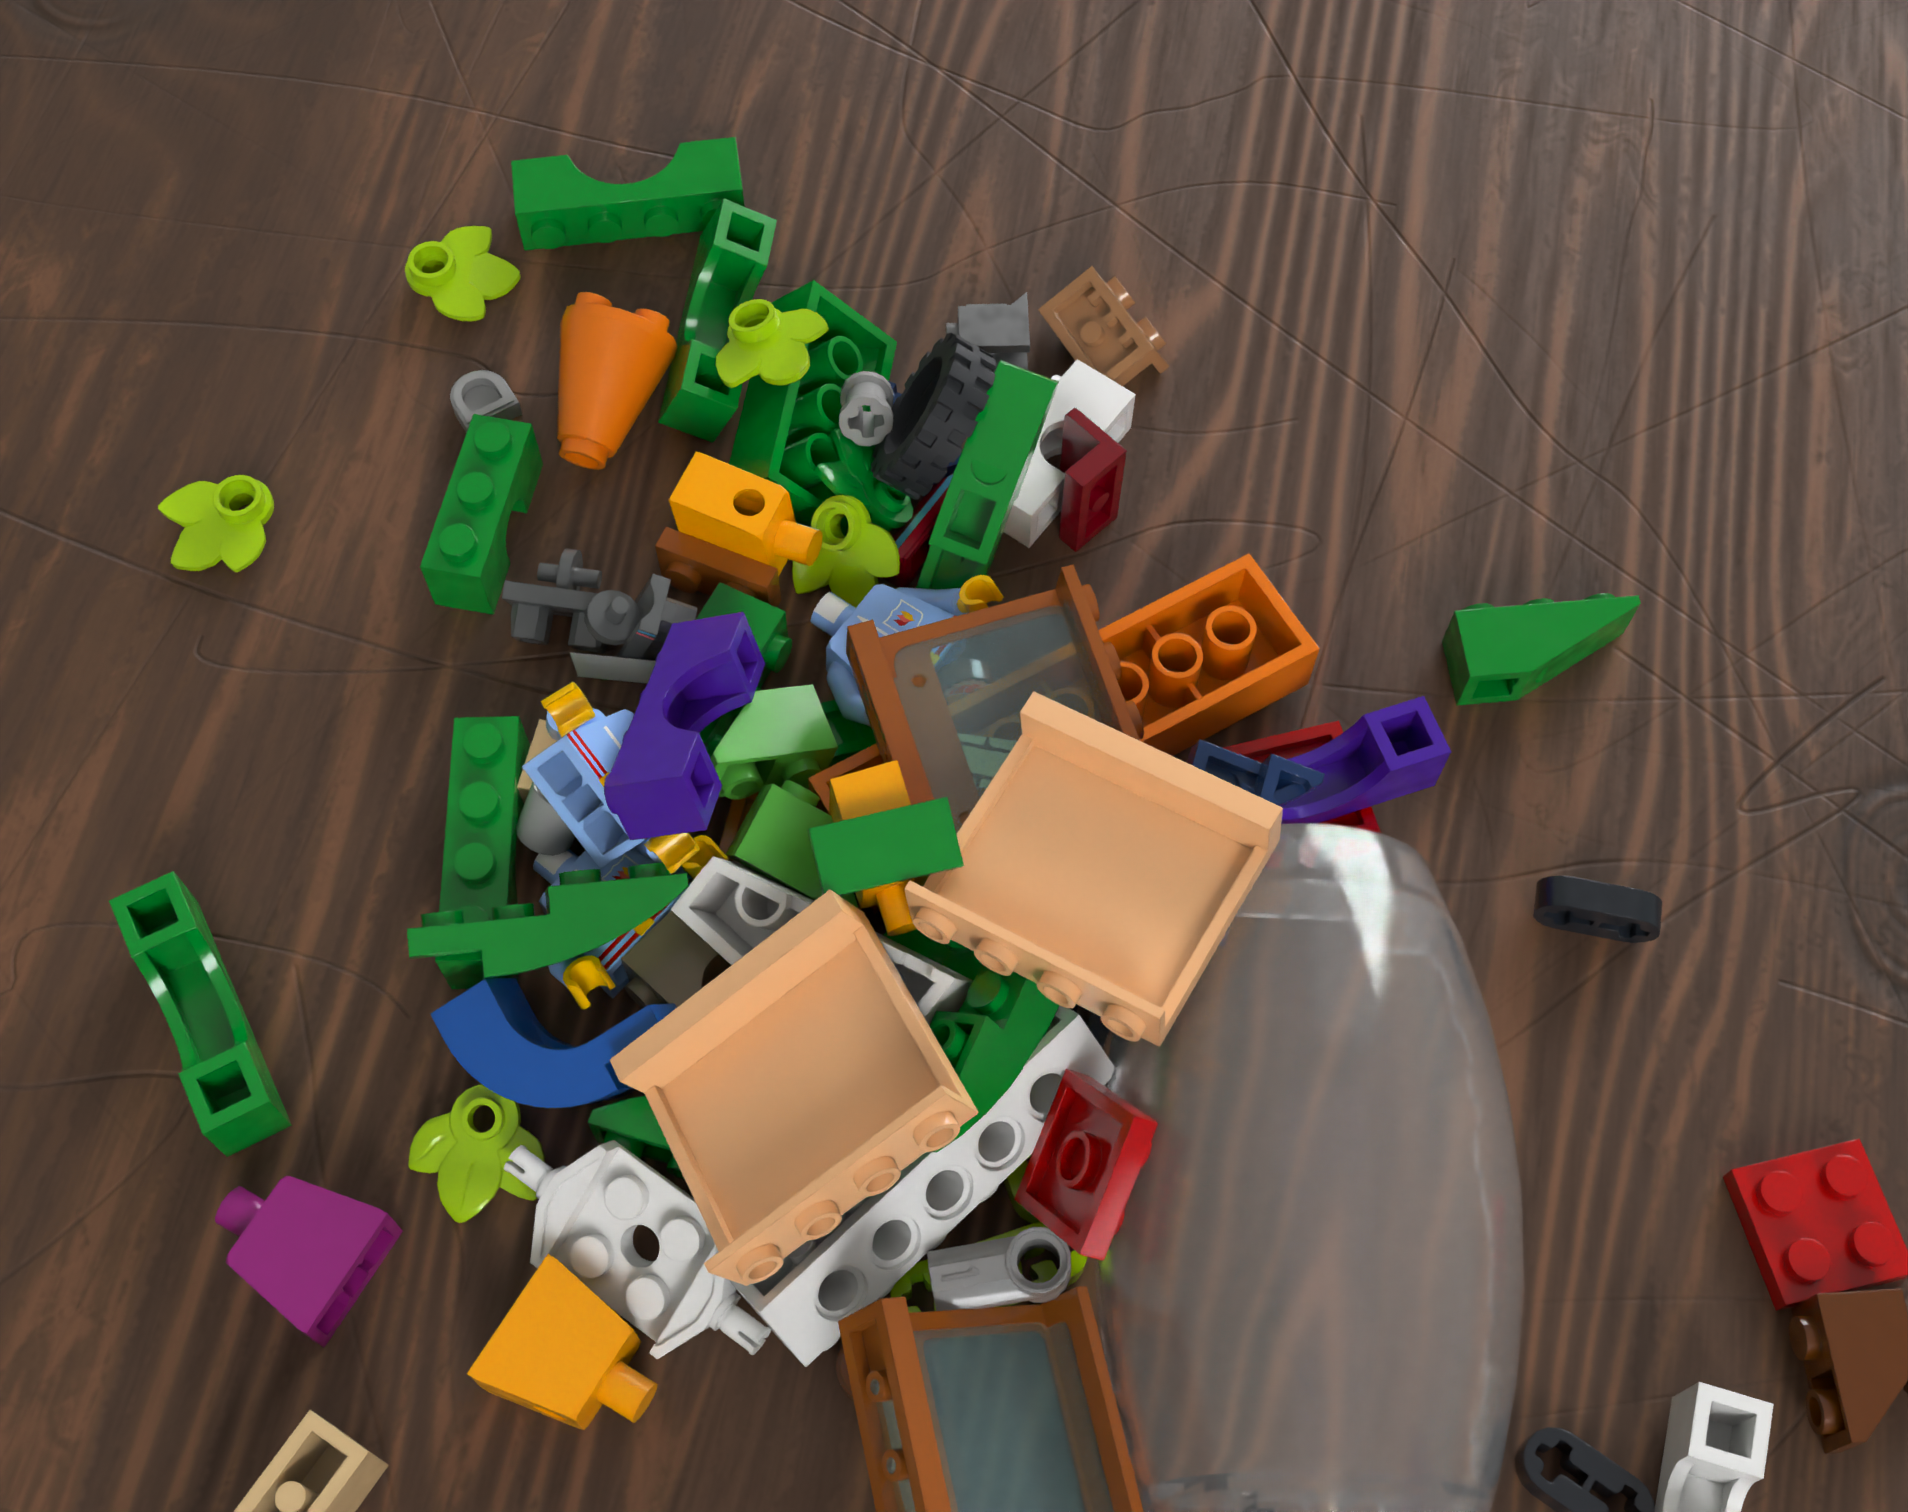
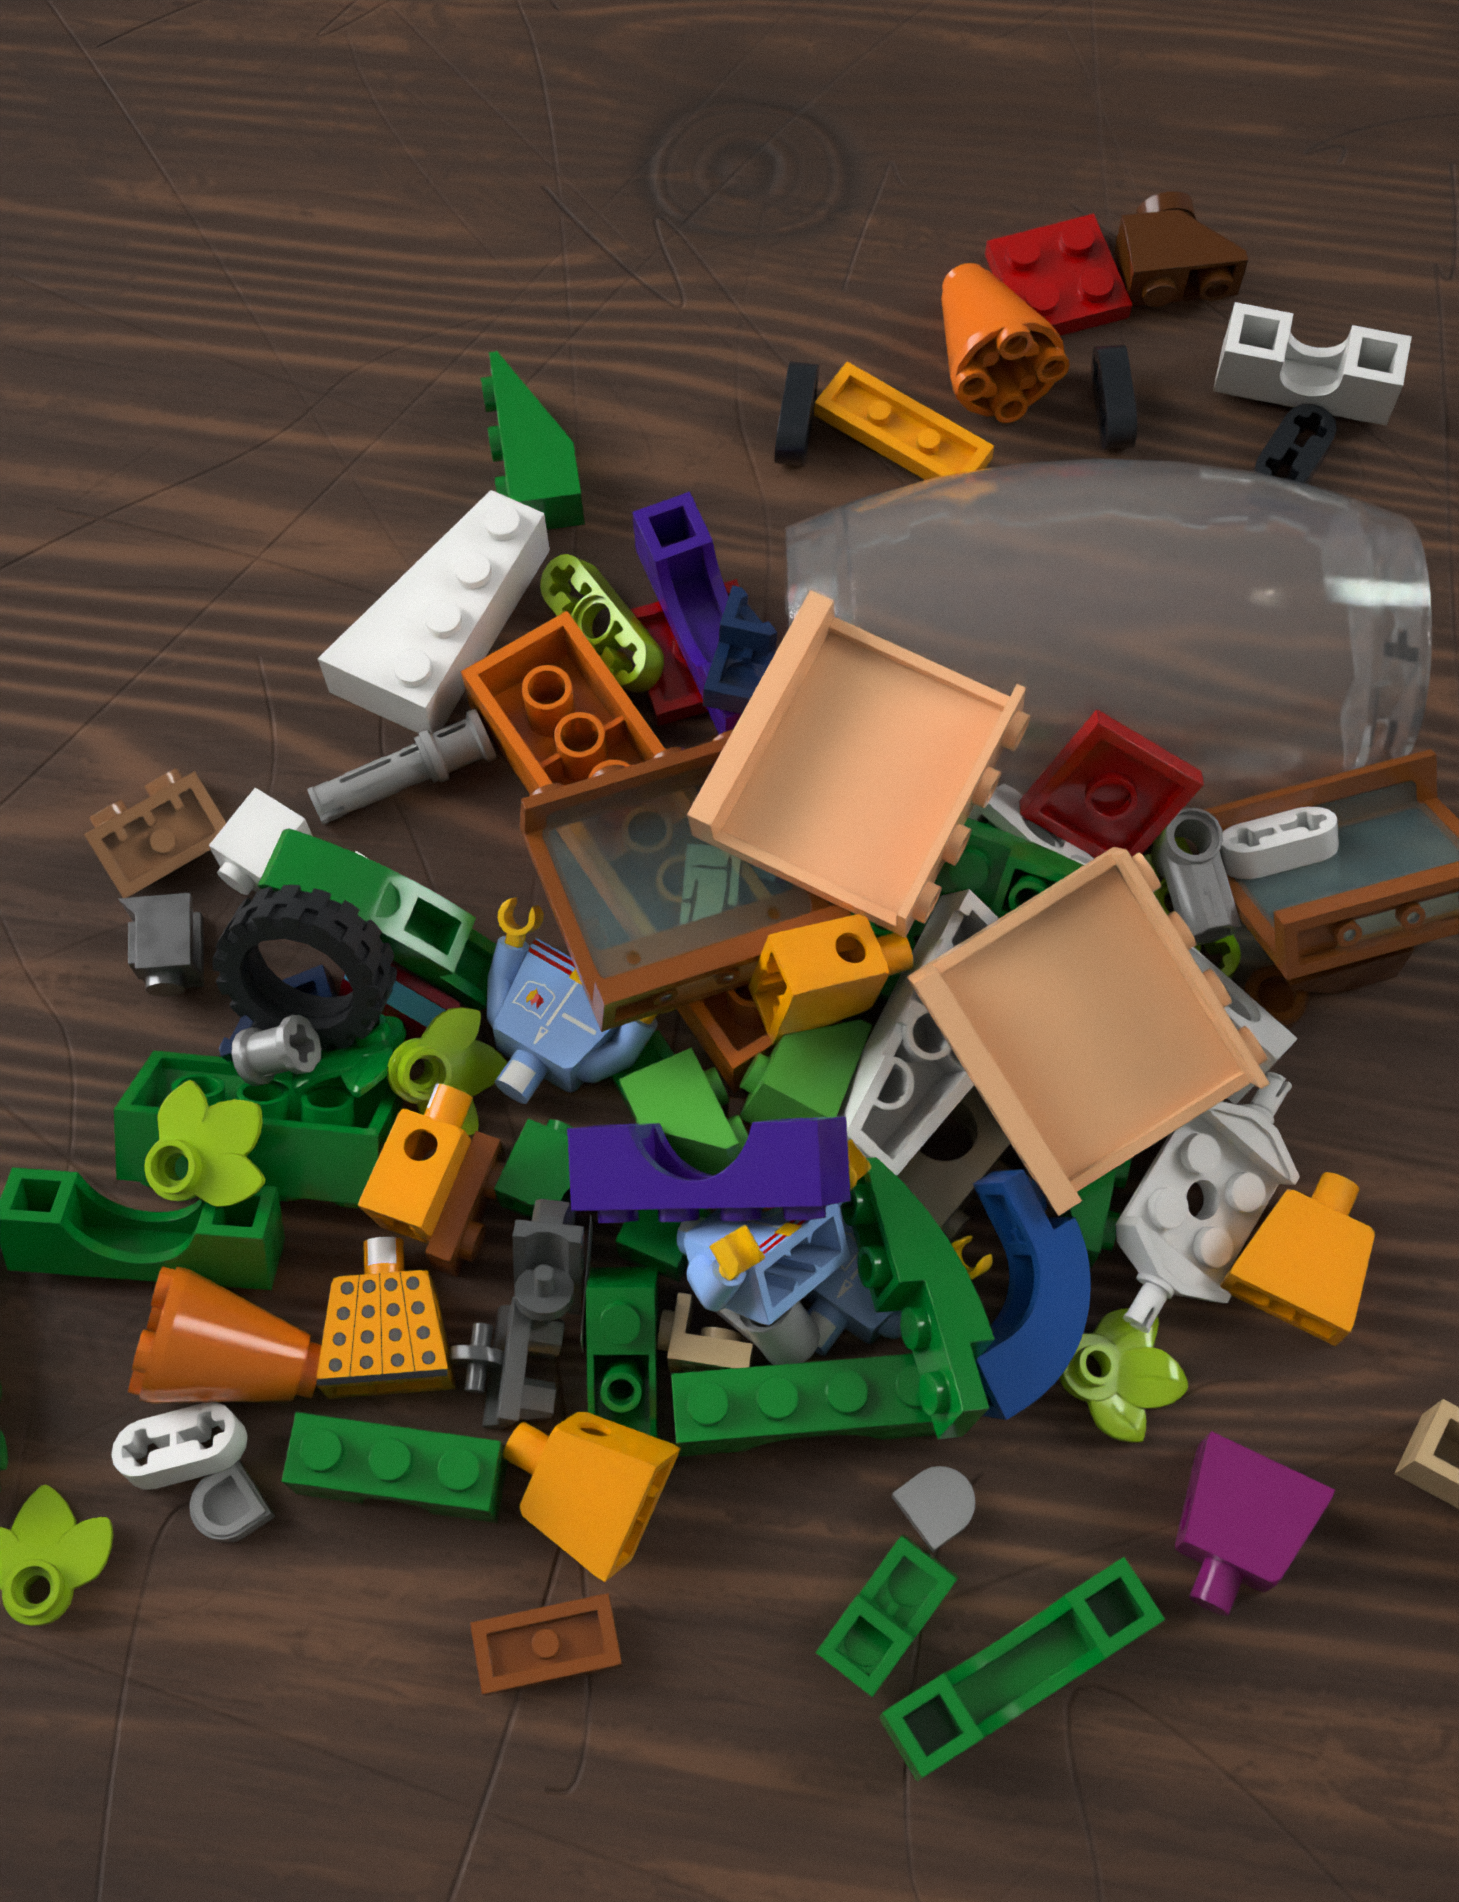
camera: 90 degrees left, 5 degrees up
(215, 525) = (409, 1801): lime plate -> none
(287, 915) = (887, 1615): none -> green slope
(313, 630) = (546, 1644): none -> dark orange plate
(380, 967) = (937, 1504): none -> light grey tile
(434, 658) = (591, 1486): none -> light orange torso
(520, 684) = (623, 1346): none -> green slope
(521, 359) = (179, 1443): none -> white beam
(607, 506) = (384, 1329): none -> light orange torso
(886, 847) = (858, 944): green tile -> none
(1046, 1381) = (1279, 842): none -> white beam
(1092, 479) = (365, 818): dark red panel -> none
(1177, 550) = (430, 757): none -> light grey pin
(1323, 700) = (623, 629): none -> lime beam
(1334, 560) = (439, 617): none -> white wedge
(1584, 1023) = (899, 426): none -> light orange plate
(1647, 1266) = (1114, 396): none -> black beam
(1703, 1123) = (997, 345): none -> orange cone

